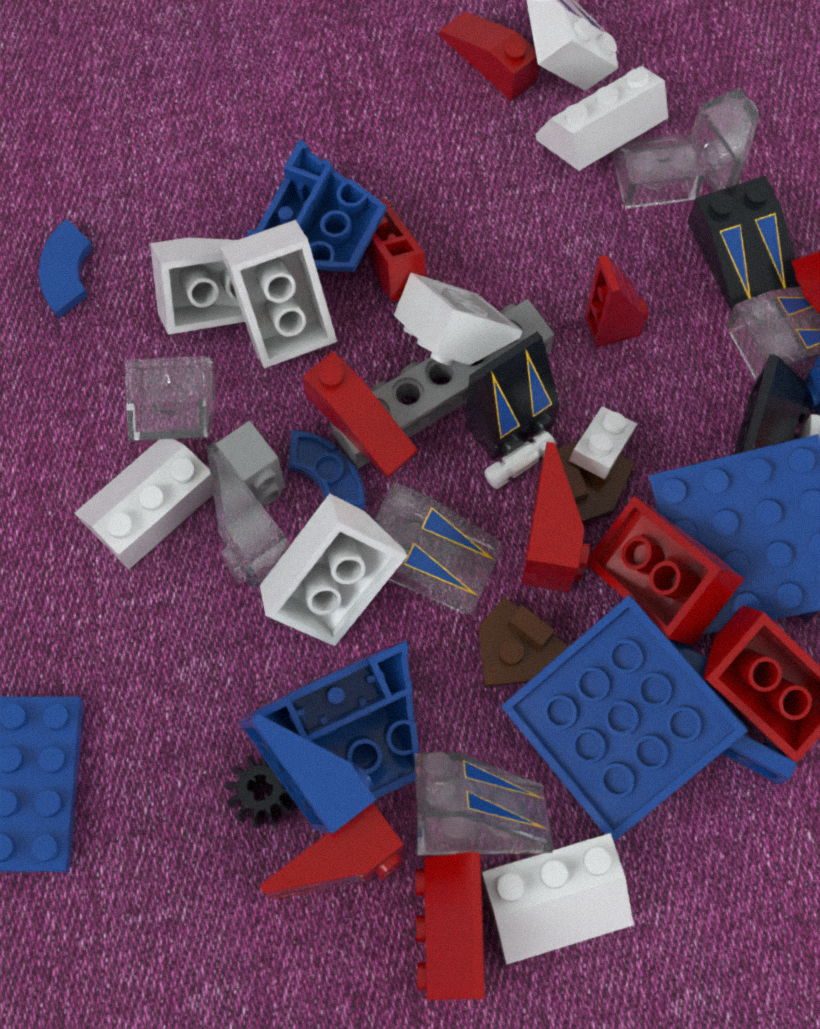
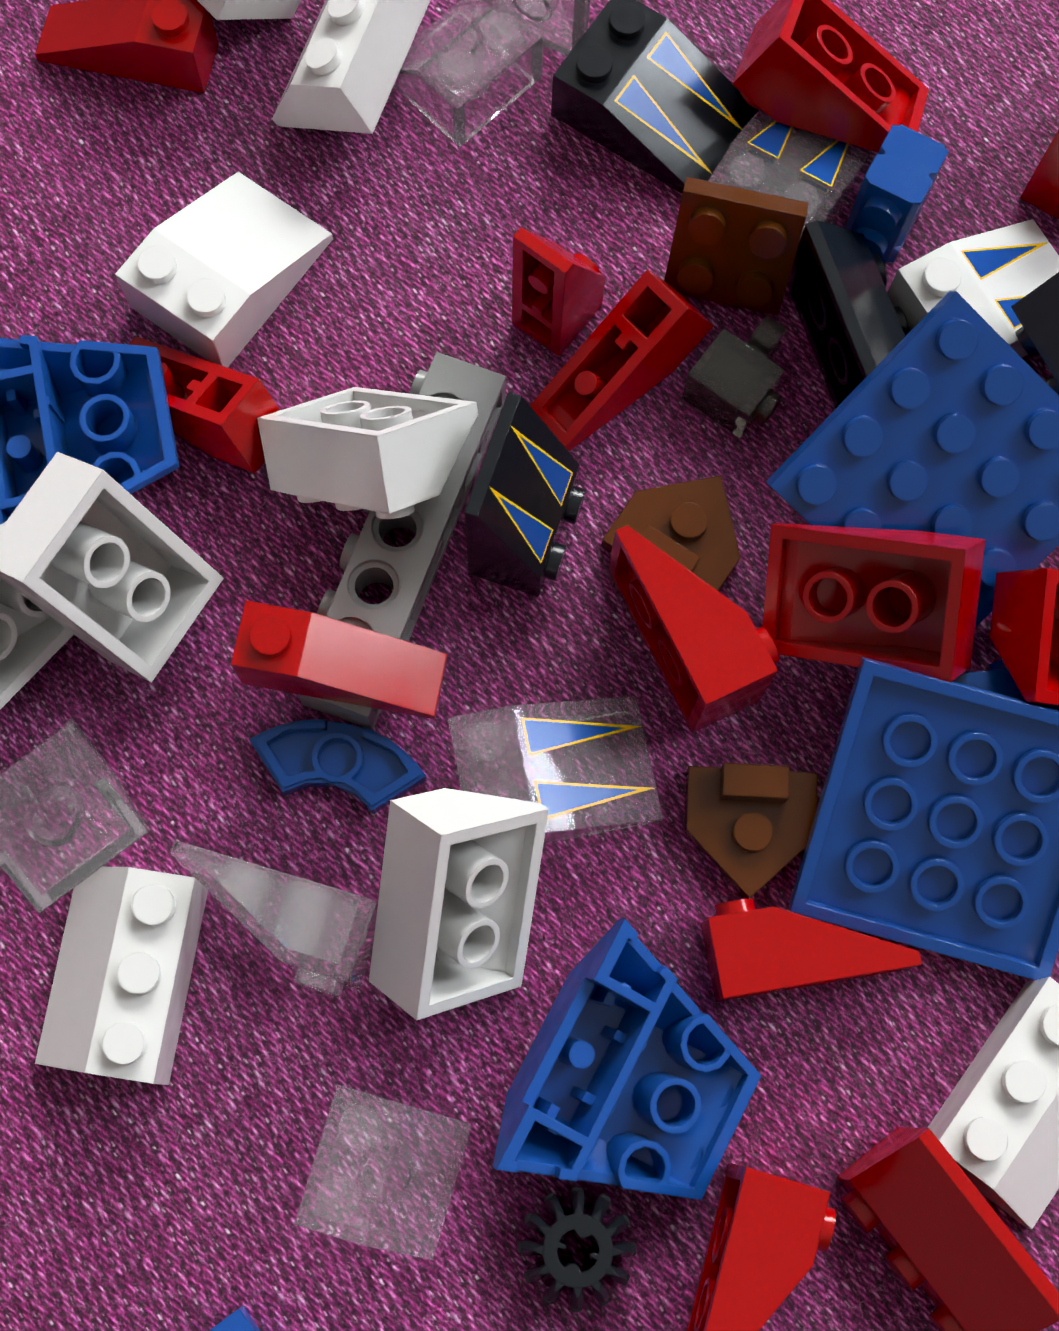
camera: 40 degrees left, 5 degrees up
(196, 683) = (383, 1173): none -> clear slope
(254, 462) = (241, 824): light grey brick -> none
(317, 780) = (673, 1193): blue slope -> none
(453, 190) = (221, 267): none -> white slope
(476, 808) = (866, 1069): clear slope -> none
(479, 722) = (781, 951): none -> red slope
(518, 460) = (575, 572): white axle -> none
(603, 442) = (667, 478): white plate -> none
(626, 367) = (621, 360): none -> red slope
(682, 419) = (737, 379): none -> clear smoke brick
(728, 345) = (734, 245): none -> reddish brown plate

